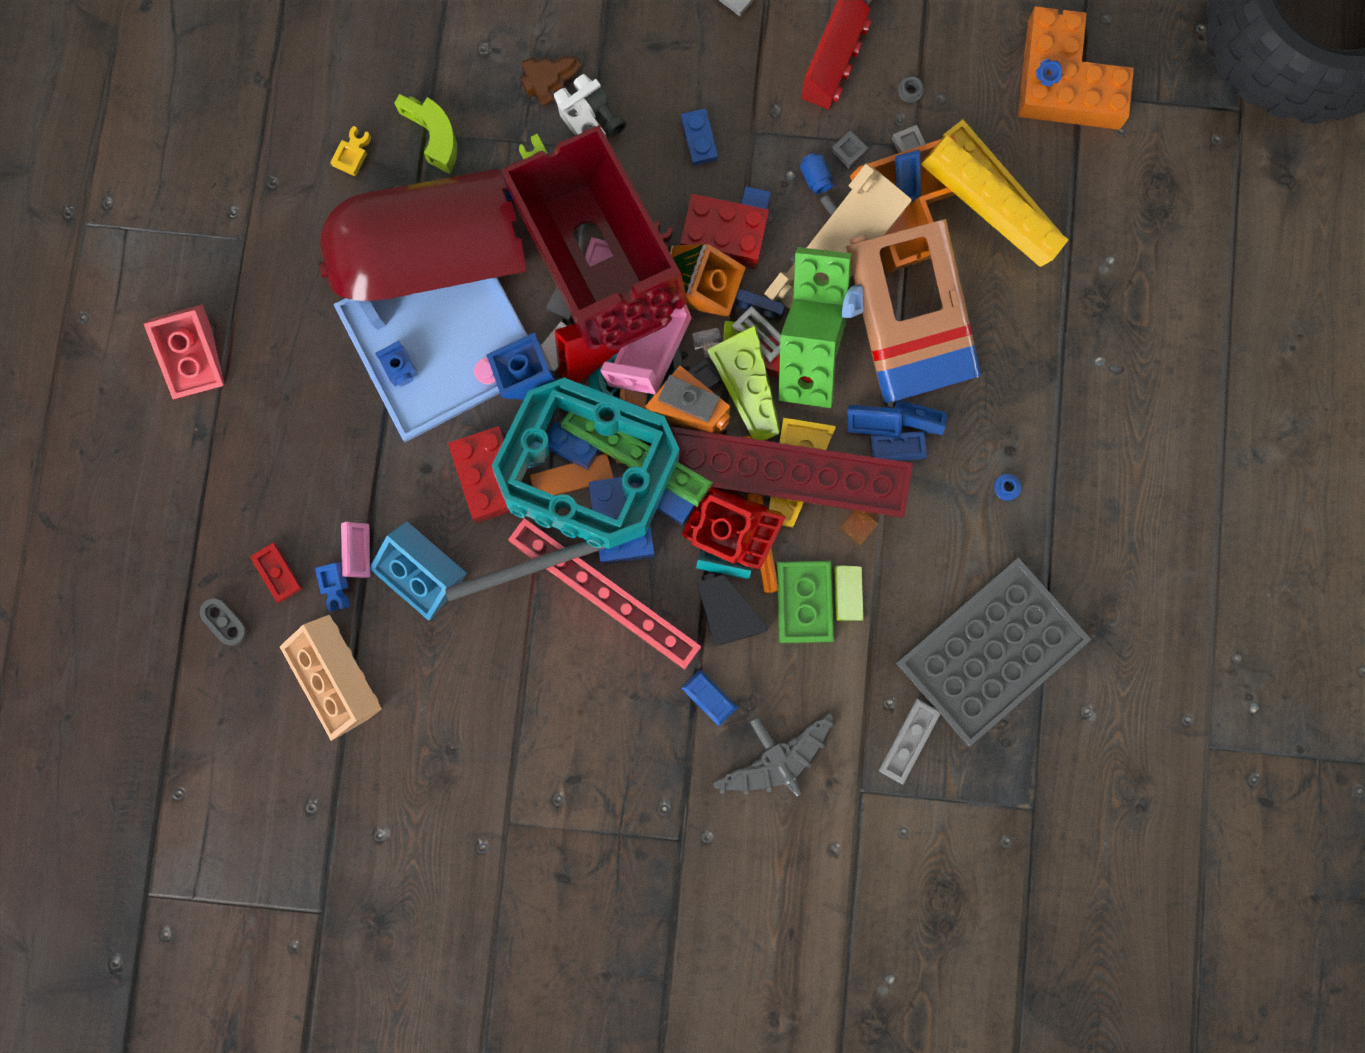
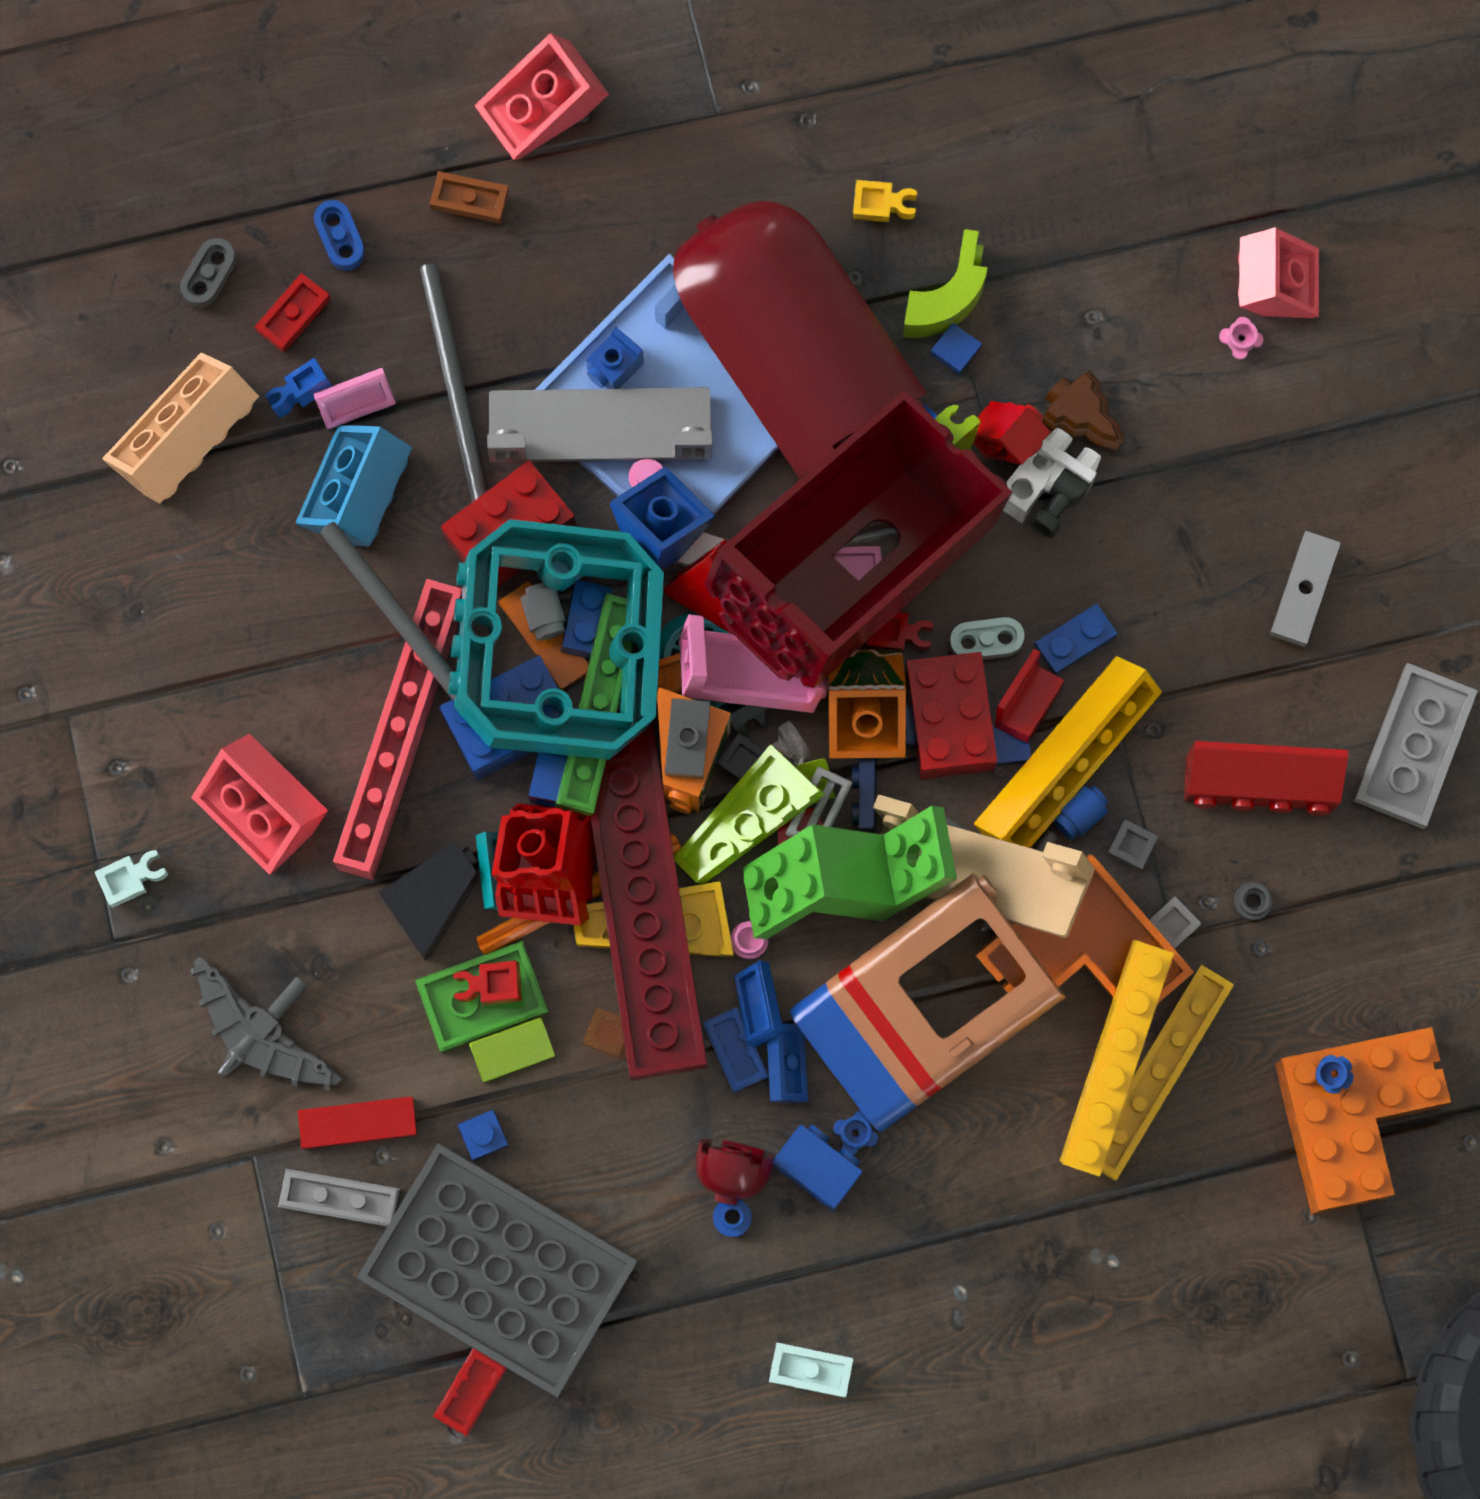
camera: 70 degrees right, 5 degrees down
(233, 522) = (339, 237): none -> blue plate
(239, 424) = (469, 197): none -> dark orange plate
(370, 479) = (454, 380): none -> dark grey piece
(439, 389) = (599, 425): none -> light grey bracket
(472, 141) = (956, 349): none -> blue tile
(549, 120) = (1010, 432): none -> red brick
(557, 470) = (543, 612): none -> light grey brick
(620, 708) = (258, 802): none -> coral slope
(642, 818) = (124, 880): none -> light aqua plate
(679, 193) = (985, 637): none -> light aqua plate
(709, 697) = (312, 915): blue tile -> none
(731, 178) = (1028, 699): none -> red panel
(778, 165) = (1070, 754): none -> yellow brick
(803, 587) = (495, 983): none -> red plate
(827, 416) = (744, 942): none -> bright pink plate
(853, 302) = (898, 910): light blue tile -> none
(863, 713) = (357, 1123): none -> red tile
(899, 631) = (483, 1135): none -> blue plate
(909, 173) = (1109, 929): blue tile -> none
(980, 473) = (732, 1170): none -> dark red cylinder
(981, 383) = (857, 1122): none -> blue plate
(994, 420) = (818, 1166): none -> blue brick
(1068, 696) = (470, 1392): none -> red plate
(1123, 470) = (811, 1370): none -> light aqua plate

